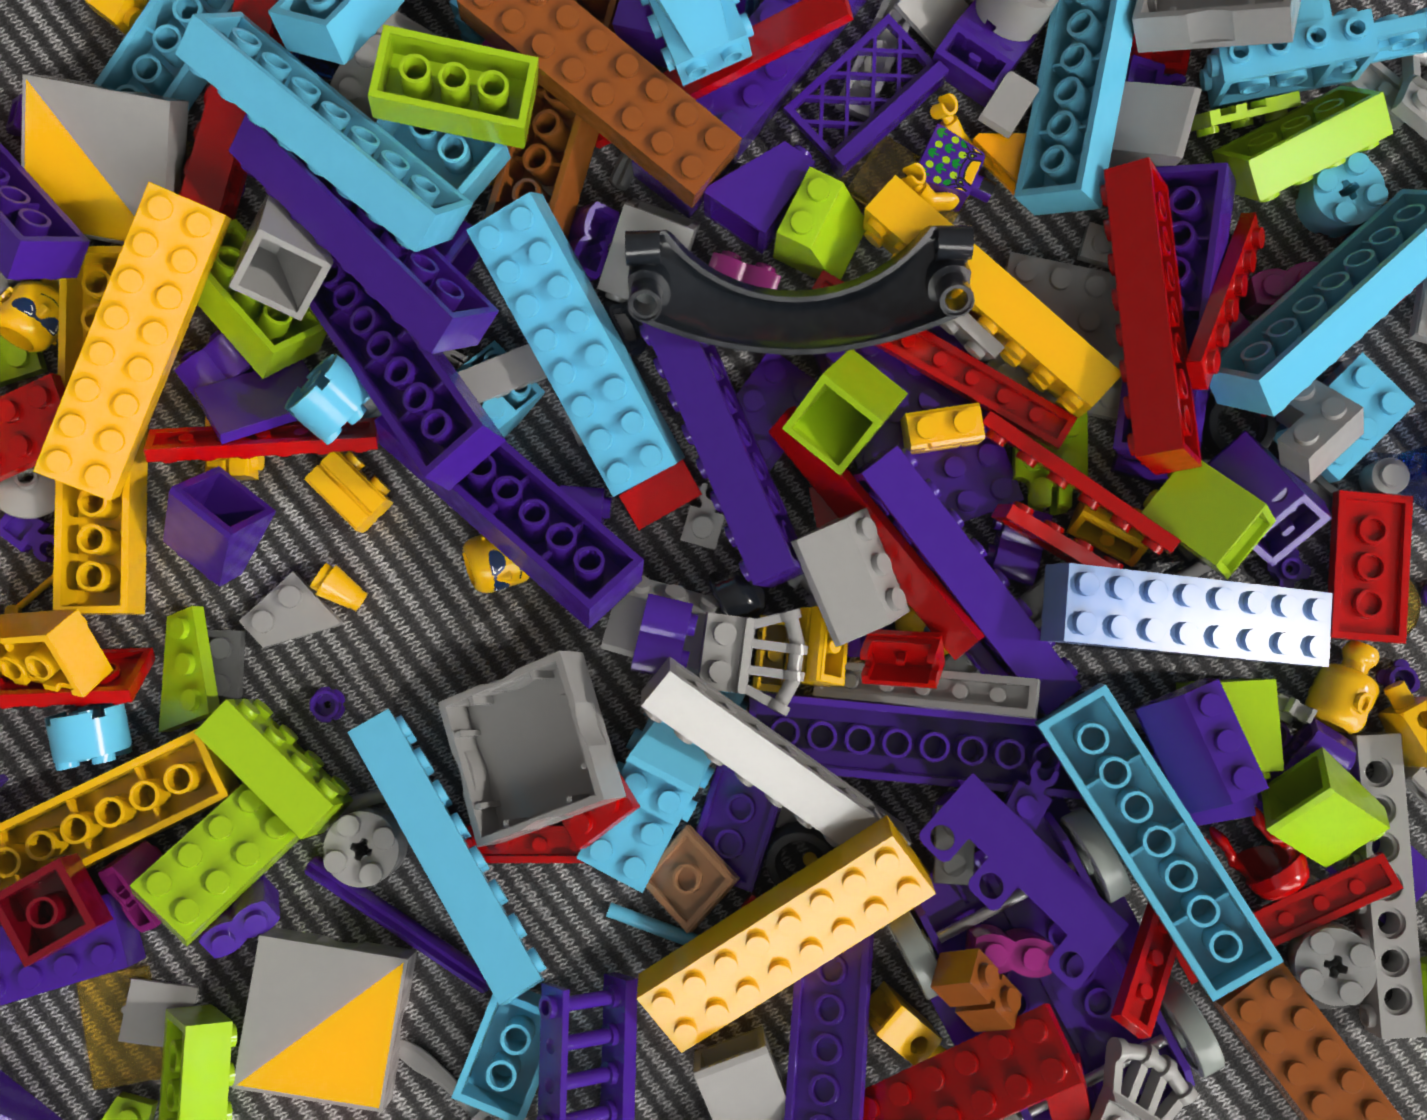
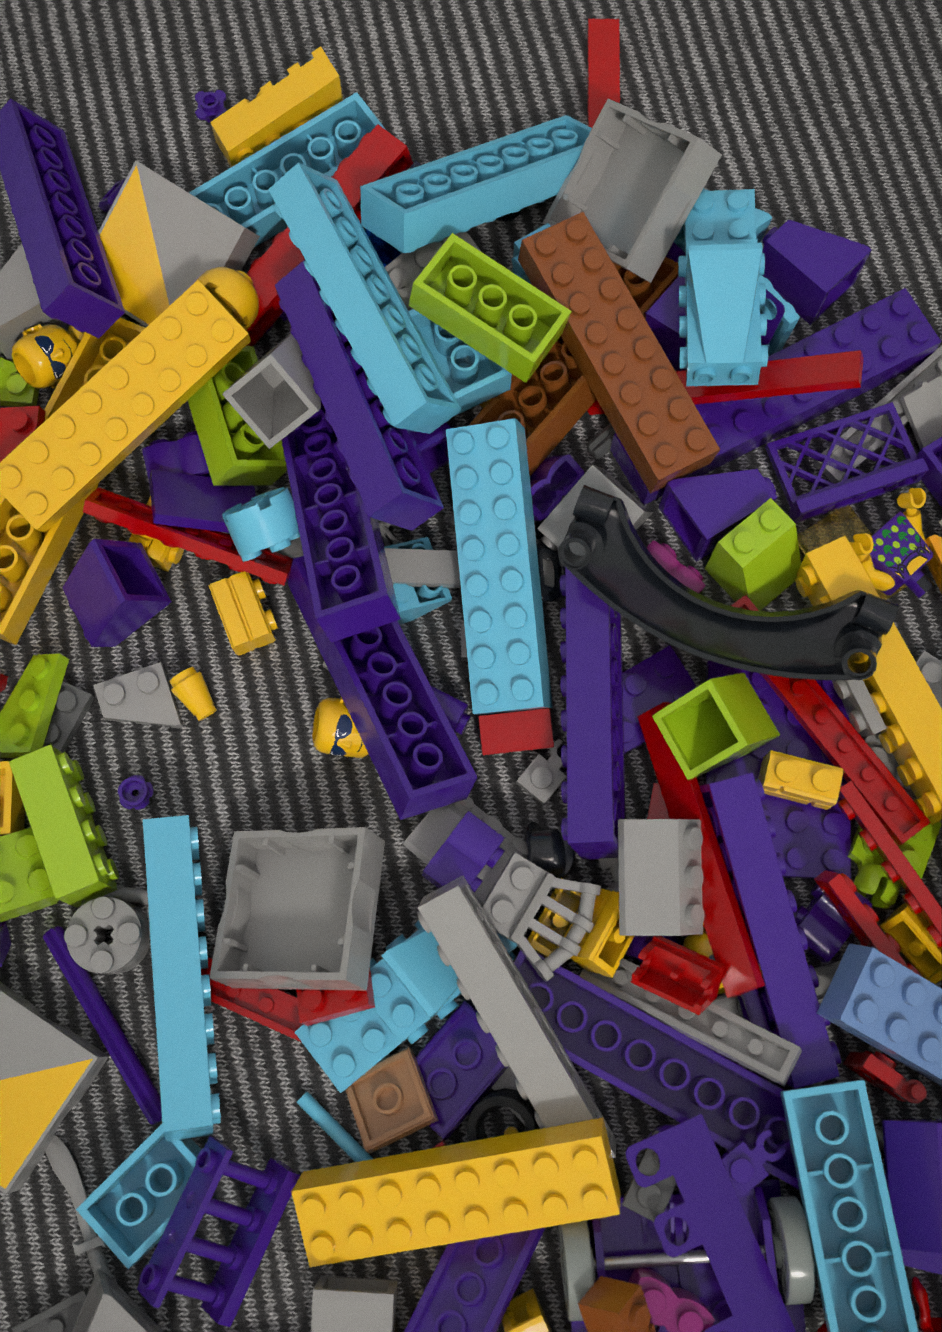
camera: 25 degrees right, 10 degrees down
(190, 176) = (234, 292): none -> yellow cylinder
(1116, 664) = (880, 1073): none -> red plate

